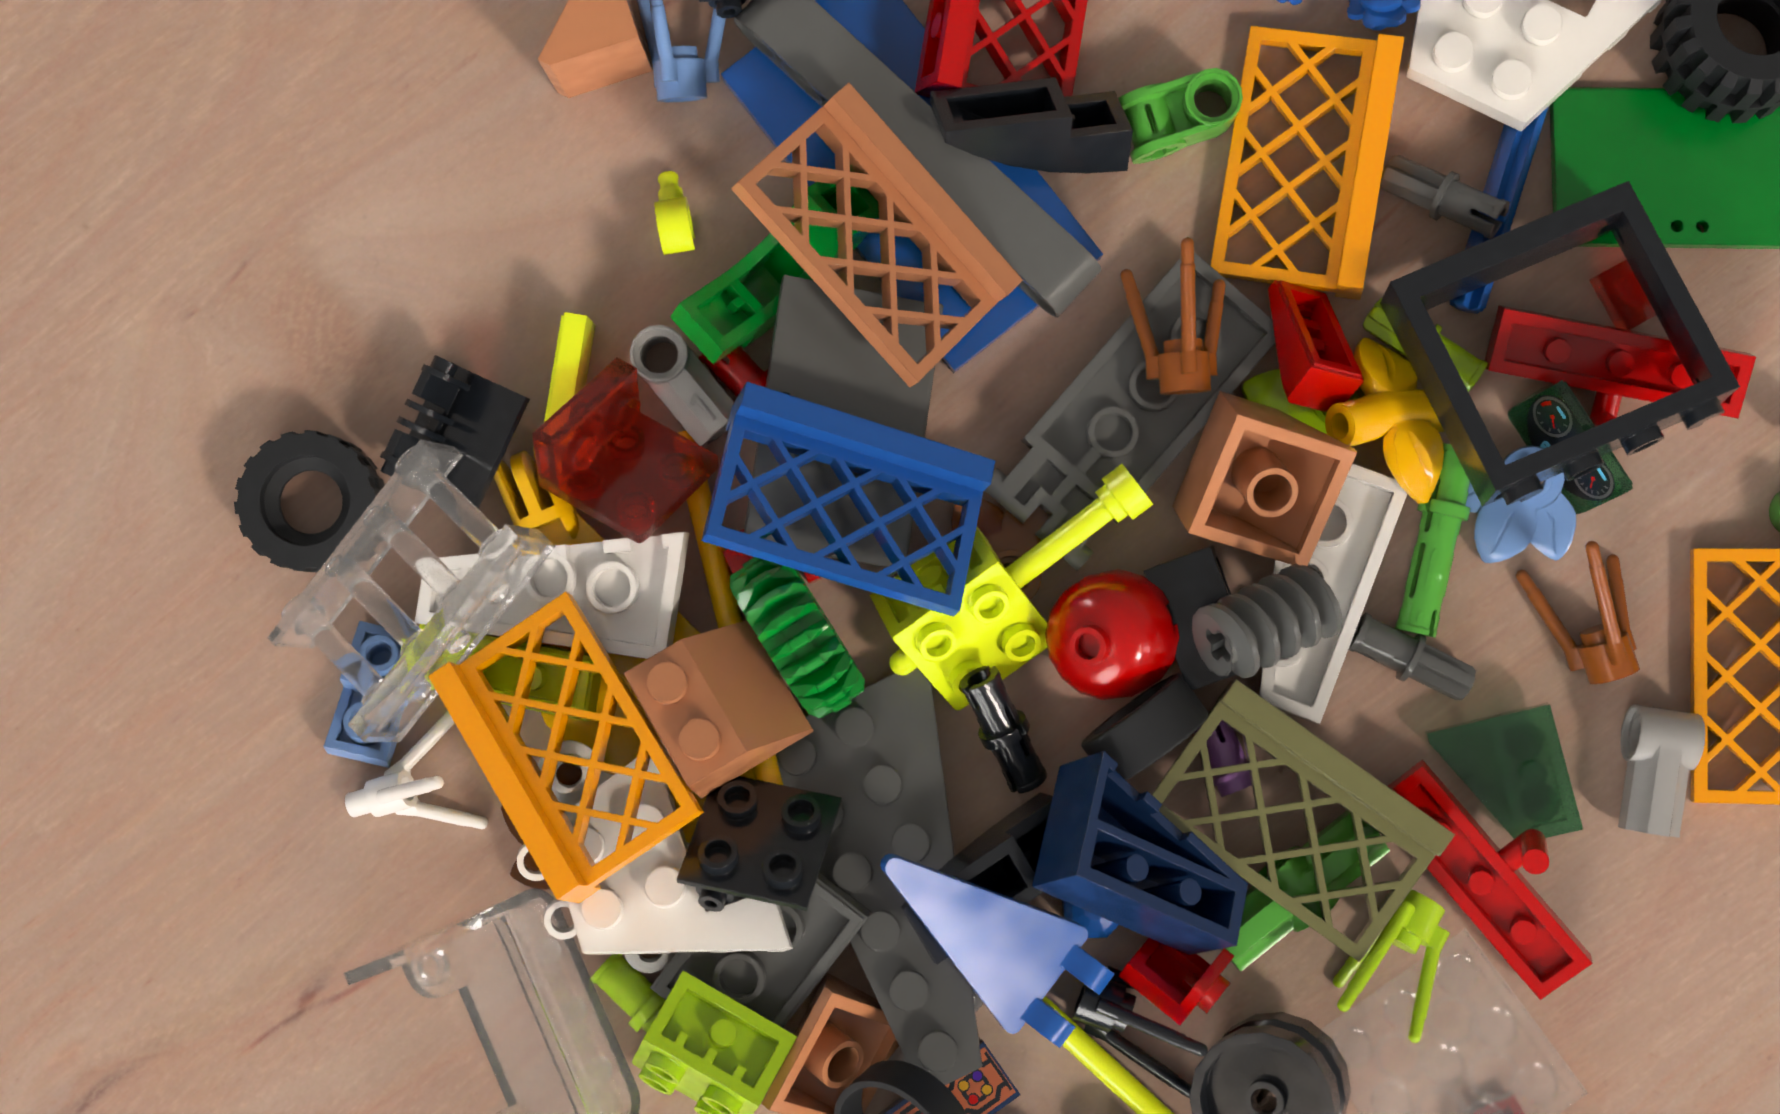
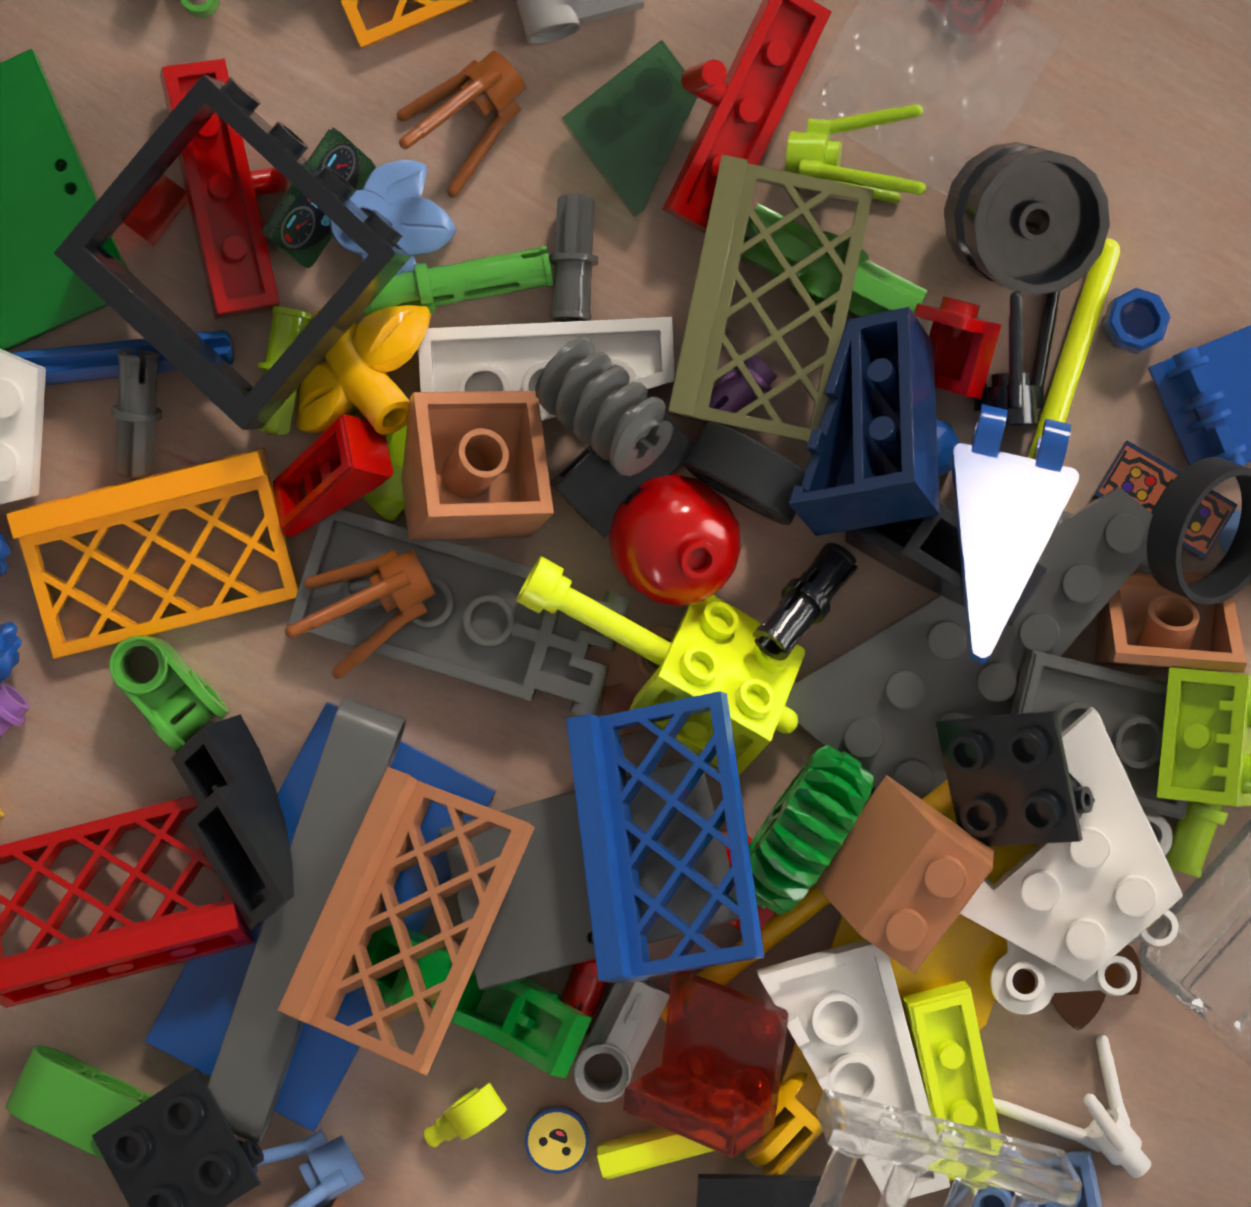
camera: 110 degrees left, 0 degrees up
(516, 776) = (1058, 1016): light orange fence -> none
(616, 289) = (557, 1139): none -> light yellow tile

